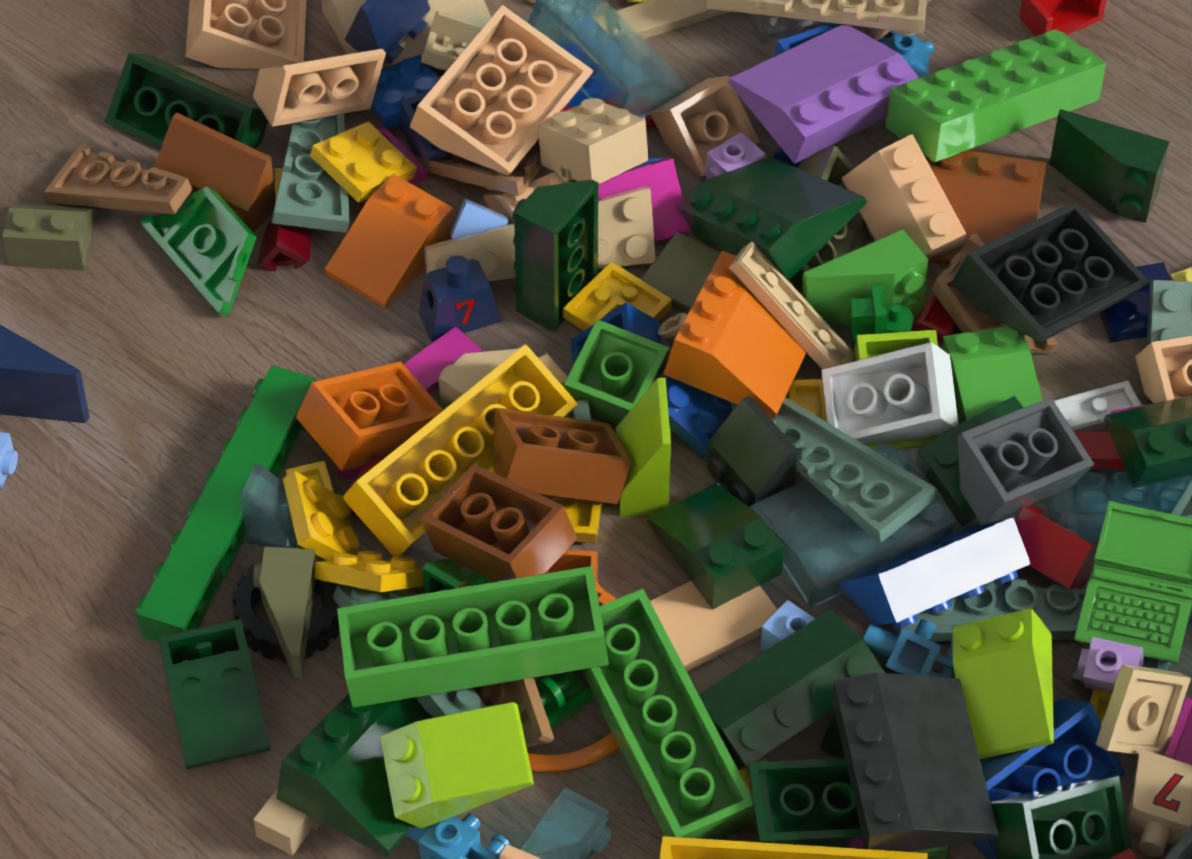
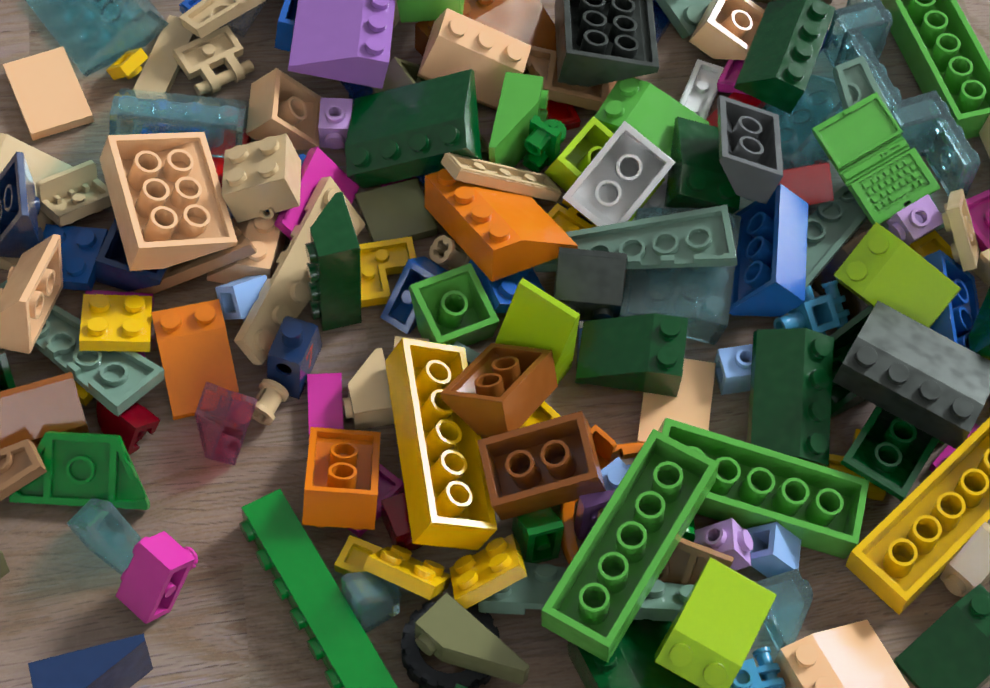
camera: 55 degrees left, 5 degrees up
(154, 353) = (155, 576): none -> dark pink brick
(167, 307) = (105, 533): none -> clear light blue slope
(344, 300) = (223, 421): none -> clear pink slope
(398, 318) = (269, 399): none -> tan bush
(576, 737) = (729, 539): none -> lavender brick
(614, 782) = (774, 549): none -> light blue brick
(707, 29) = (210, 52): none -> tan plate

